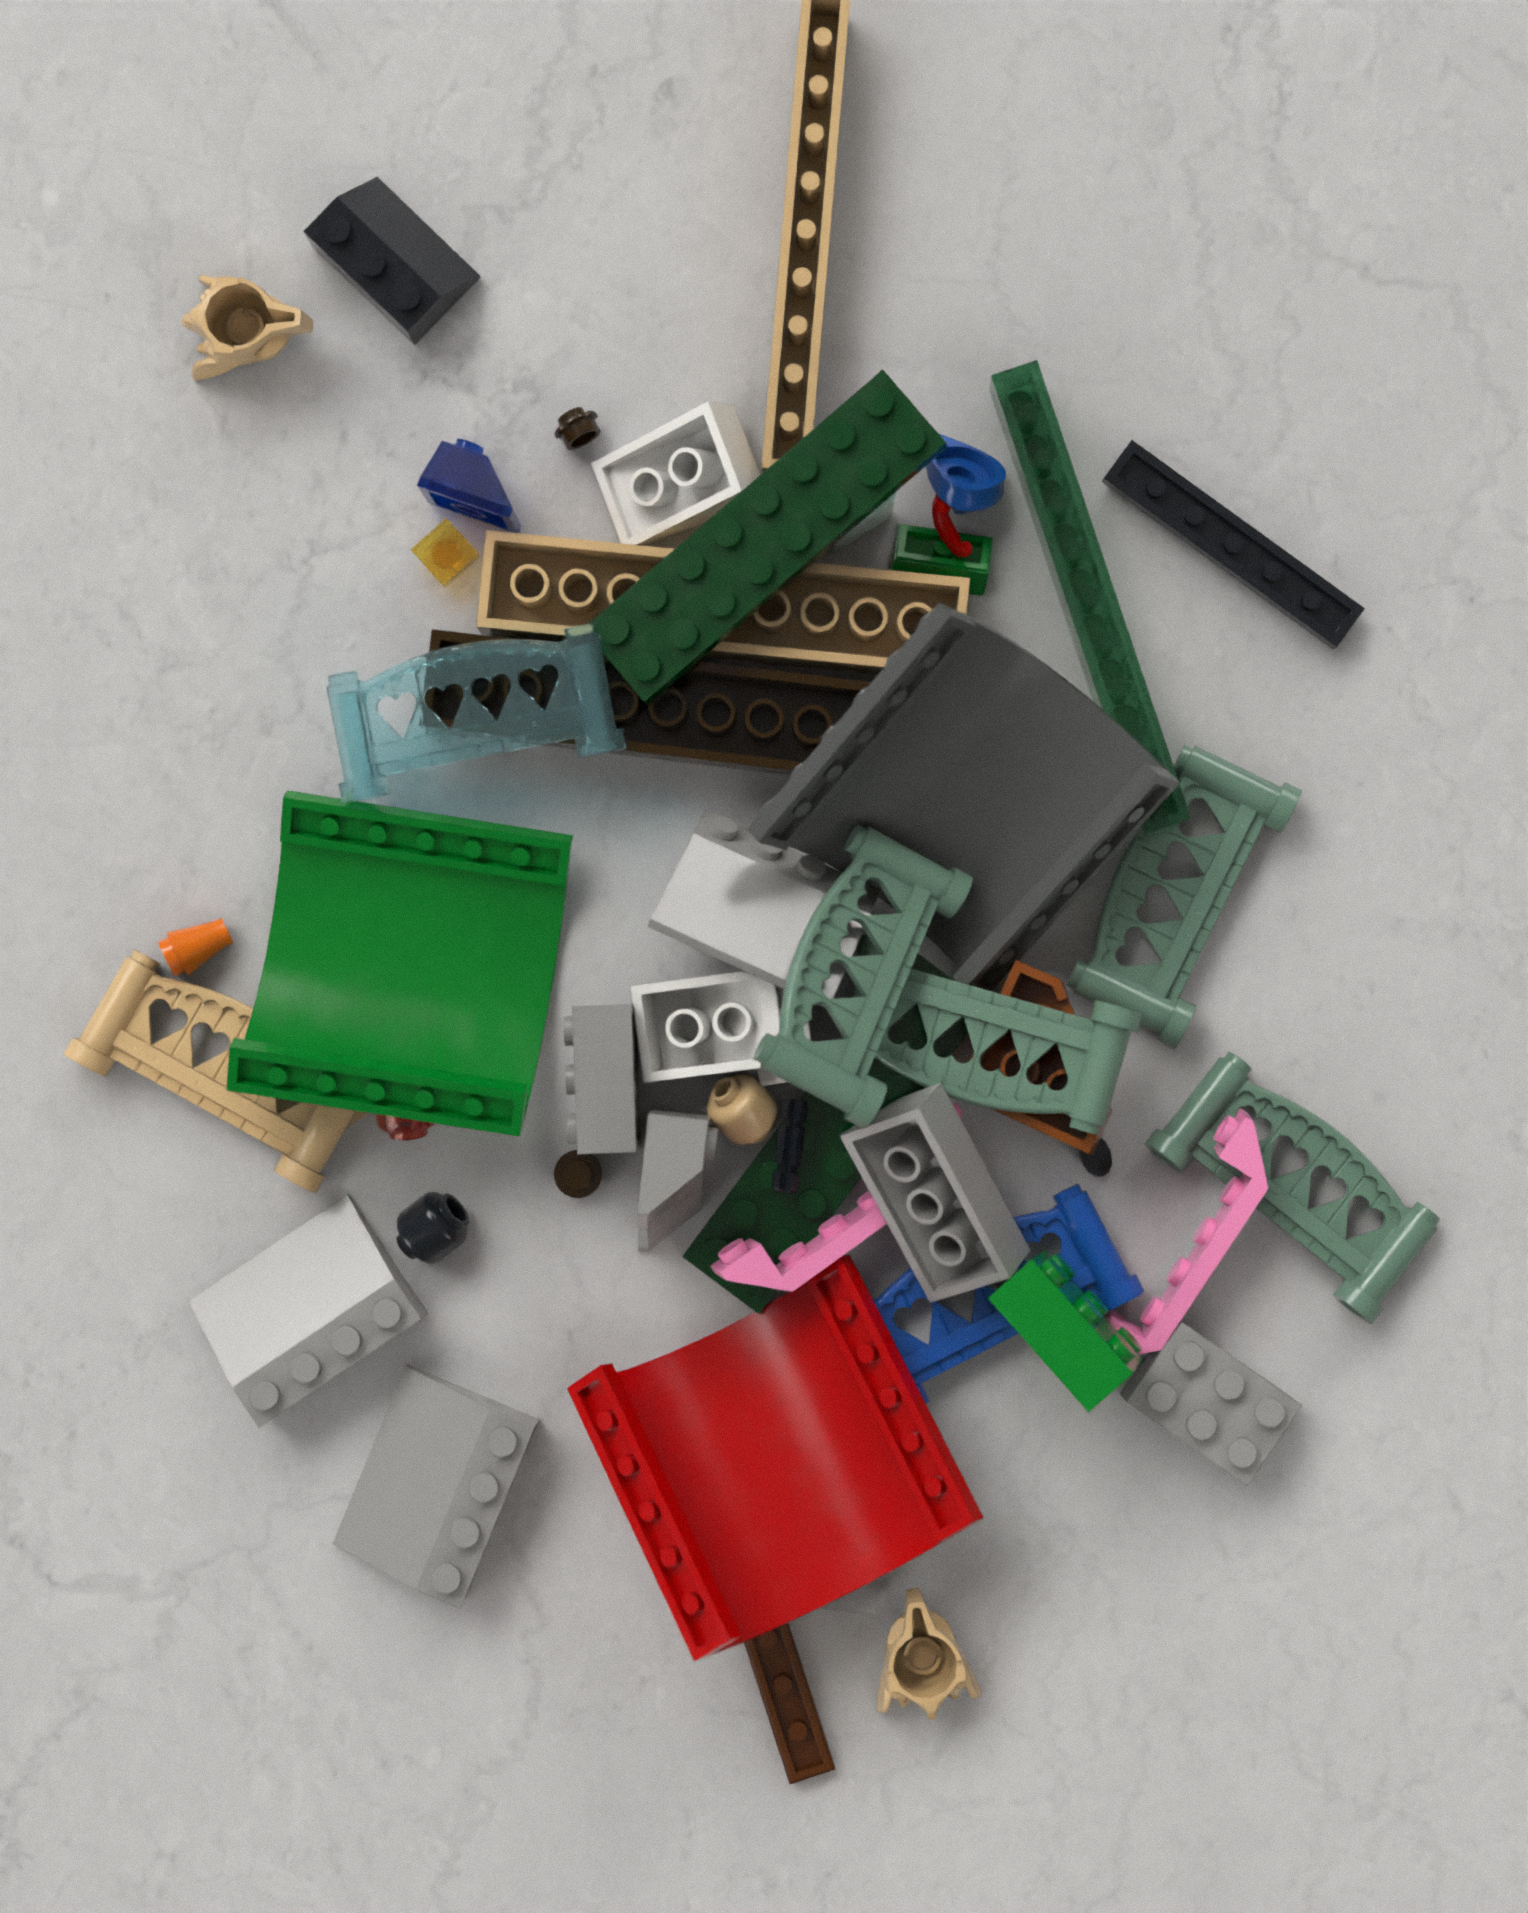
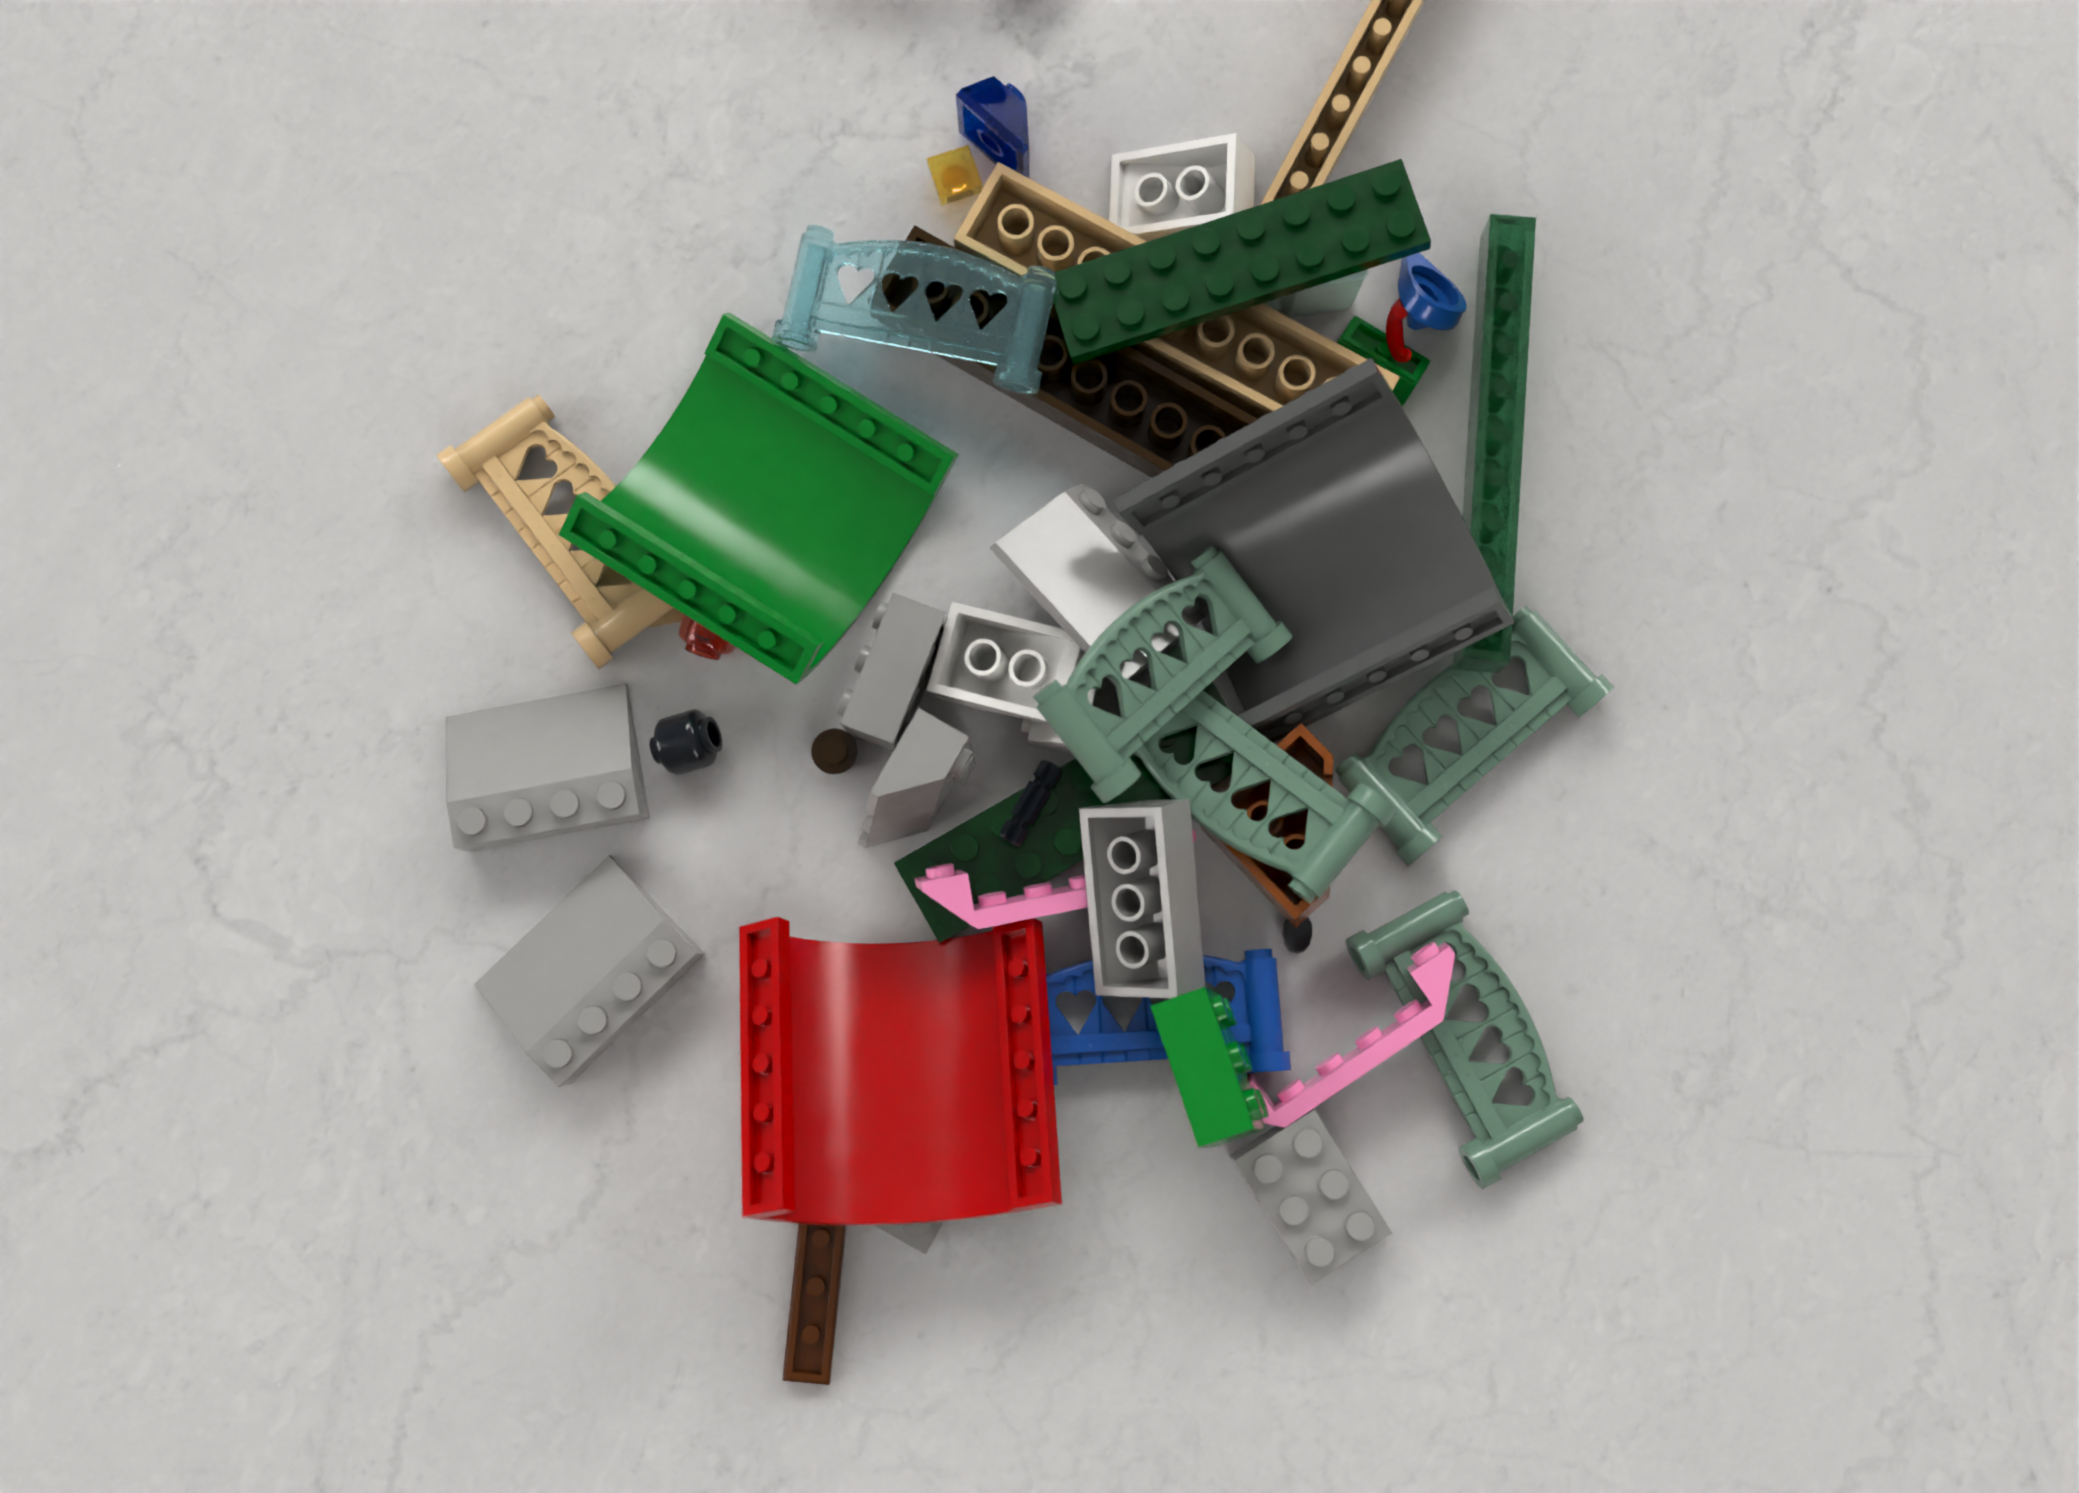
camera: 20 degrees right, 5 degrees down
(193, 946) = (590, 413): orange cone -> none
(577, 428) = (1113, 119): dark brown plate -> none
(742, 1109) = (1003, 754): tan head -> none
(923, 1660) = (951, 1318): tan piece -> none
(1233, 545) = (1639, 452): black plate -> none

